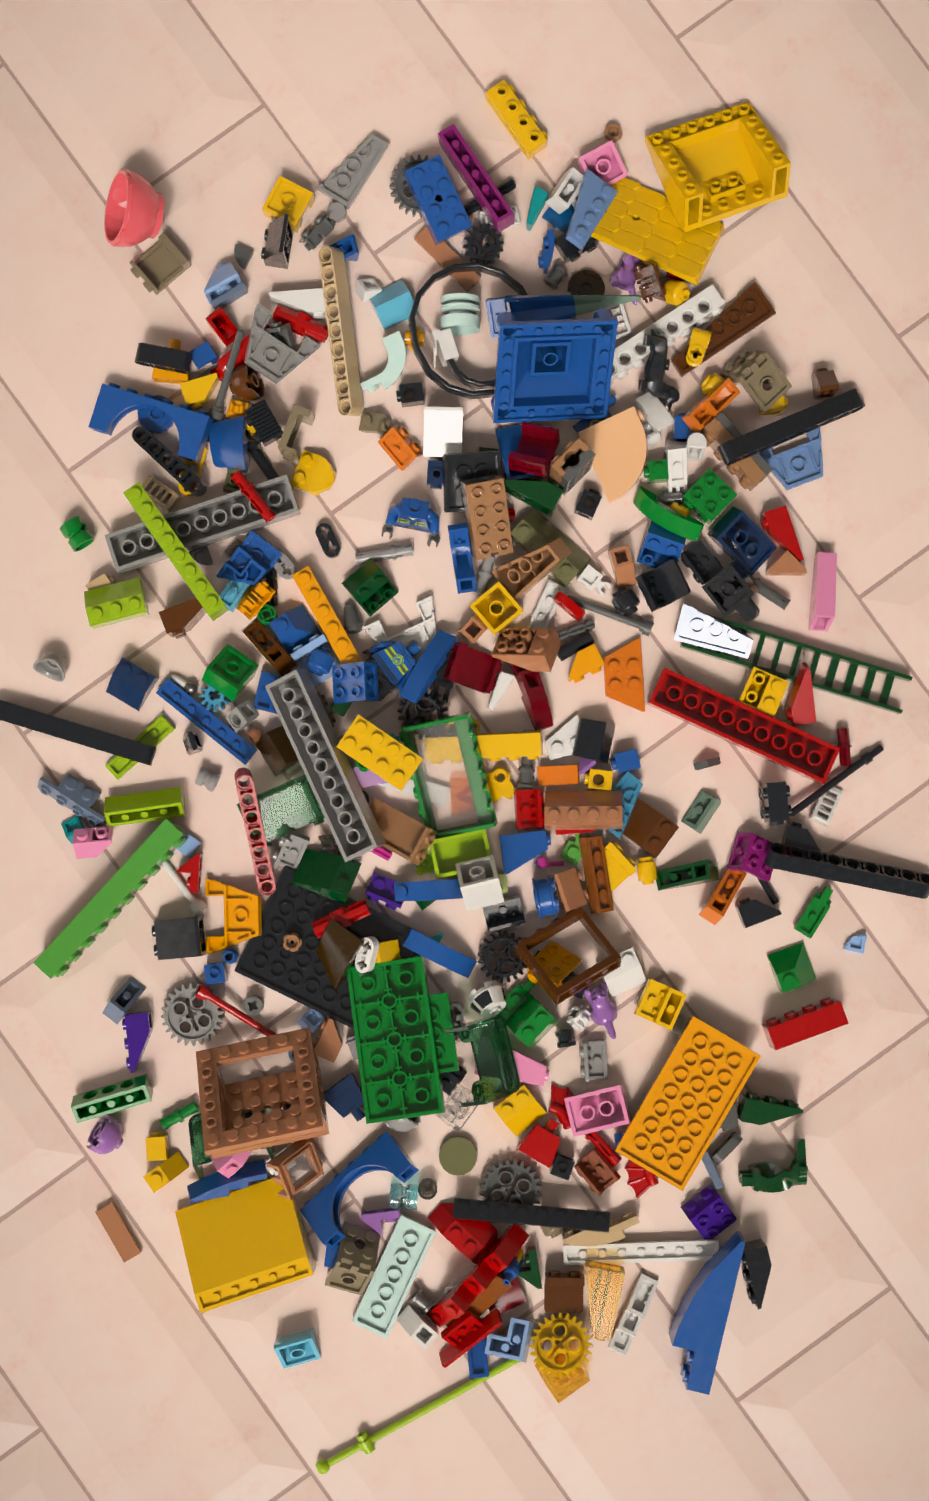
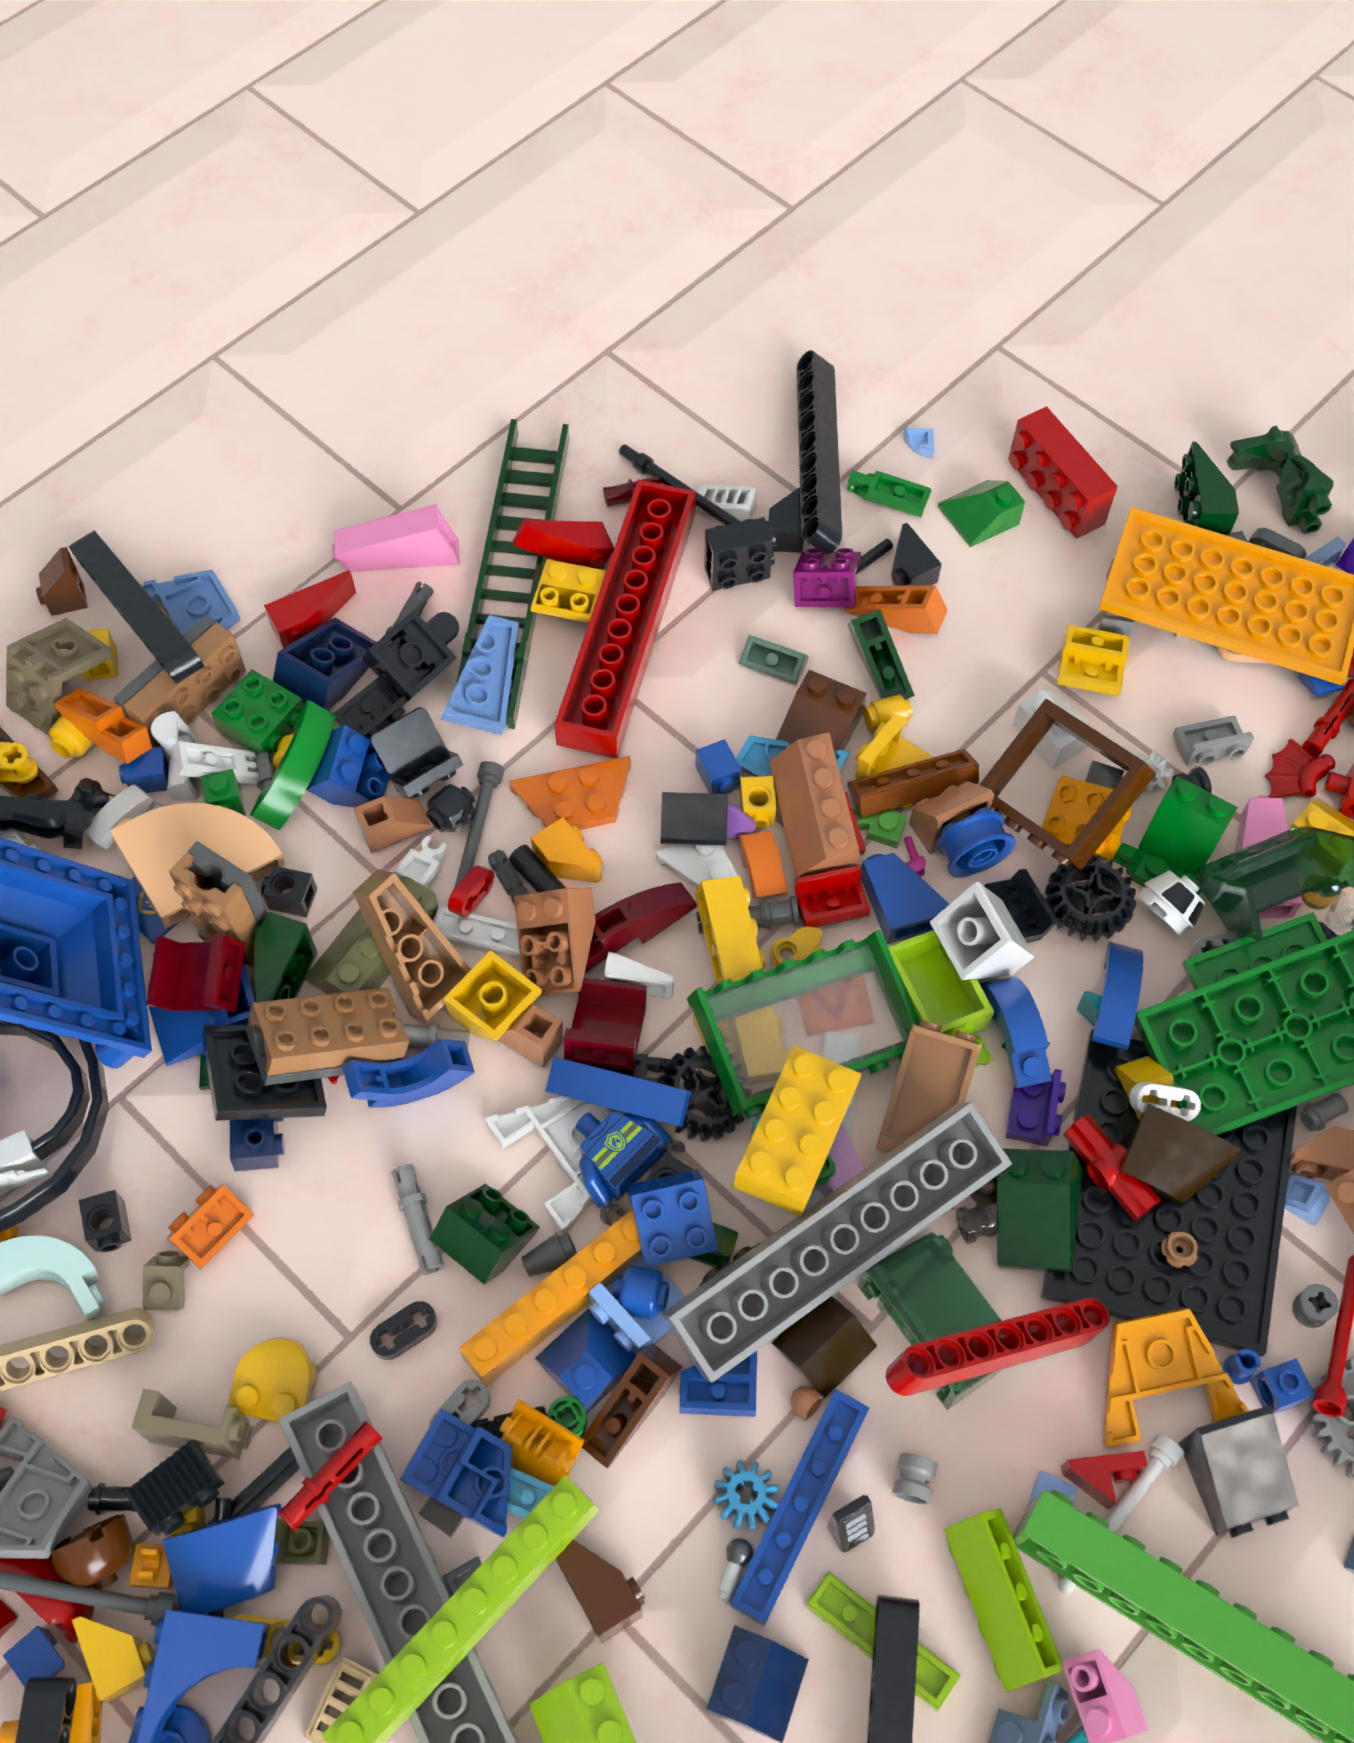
camera: 100 degrees left, 25 degrees down
(230, 672) = (696, 1466): green container -> none
(242, 716) = (776, 1428): light grey brick -> none
(271, 393) = (108, 1499): none -> black pin
(291, 850) = (1009, 1283): light grey bracket -> none
(413, 515) = (338, 1174): blue torso -> none
(442, 431) = (175, 1147): white slope -> none
(598, 1110) = (1289, 714): bright pink slope -> none
(603, 1010) = (1136, 732): medium lavender animal -> none
(707, 763) = (697, 660): dark grey tile -> none
(786, 566) = (359, 598): nougat slope -> none

